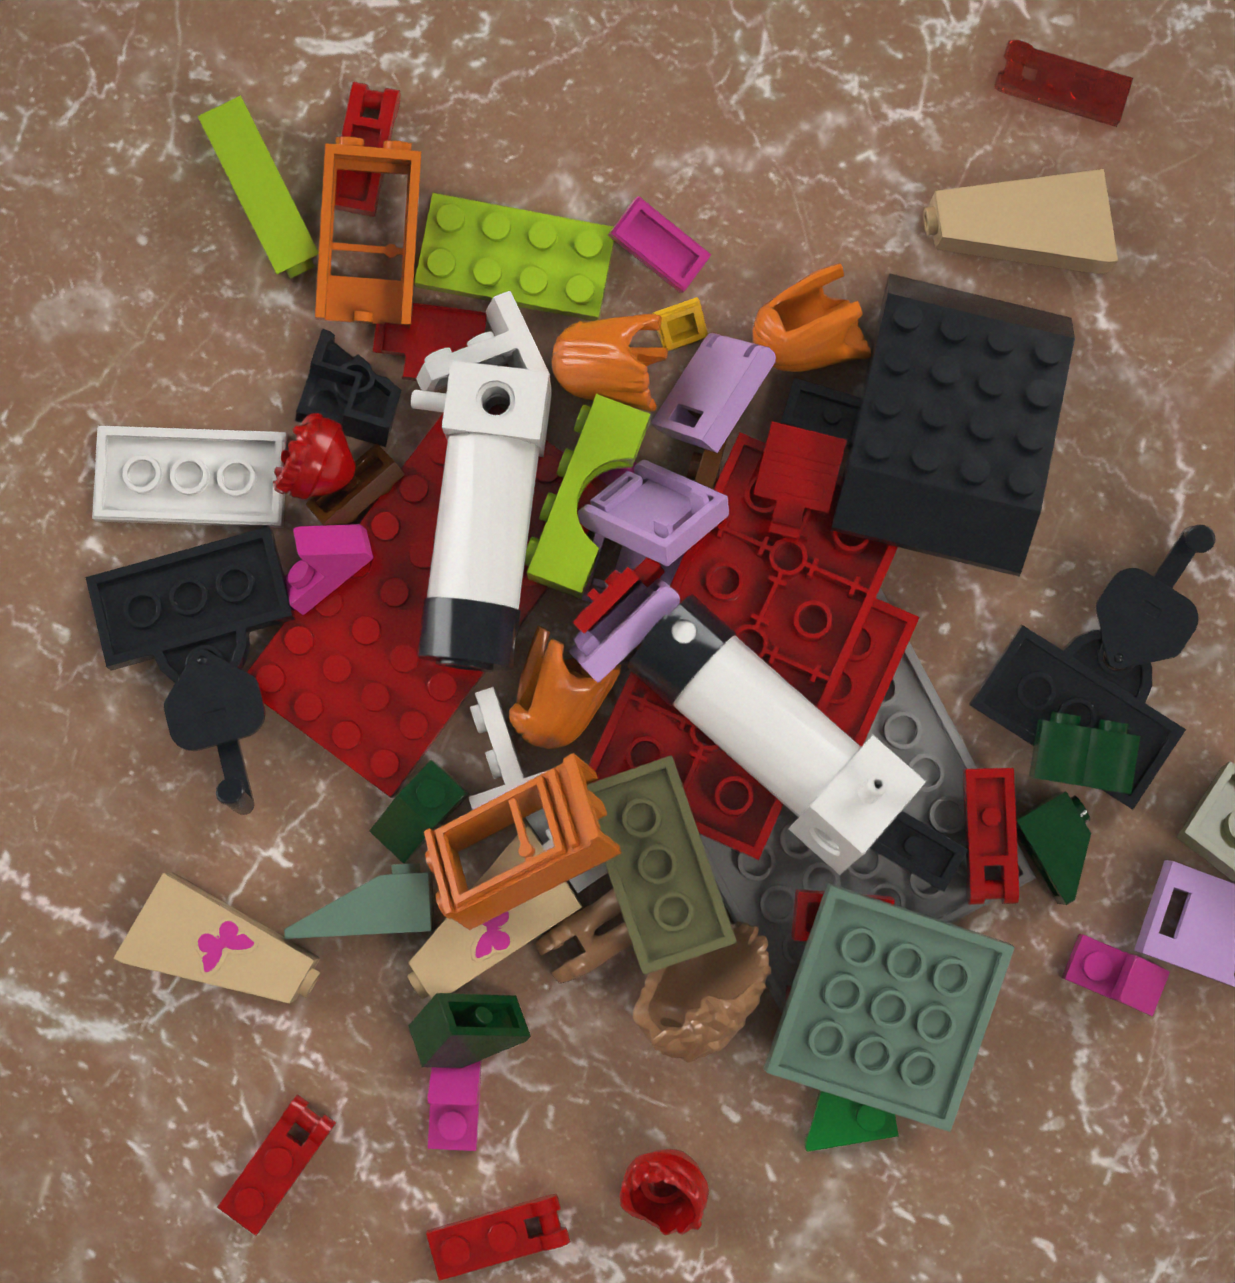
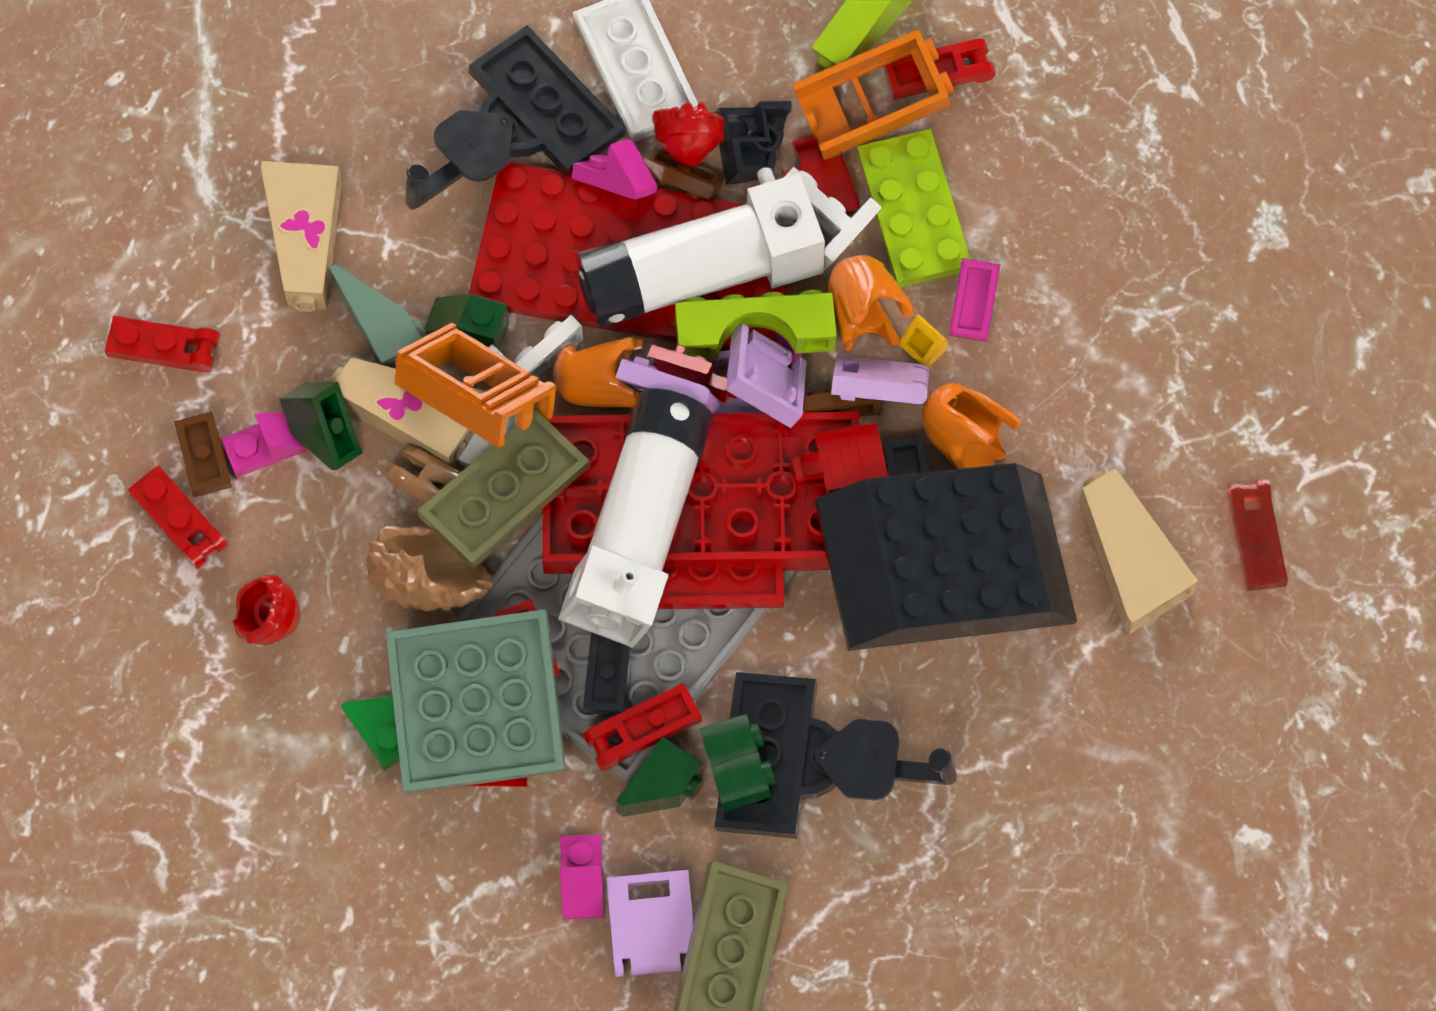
camera: 65 degrees right, 15 degrees down
(436, 1177) = (203, 454): none -> reddish brown plate

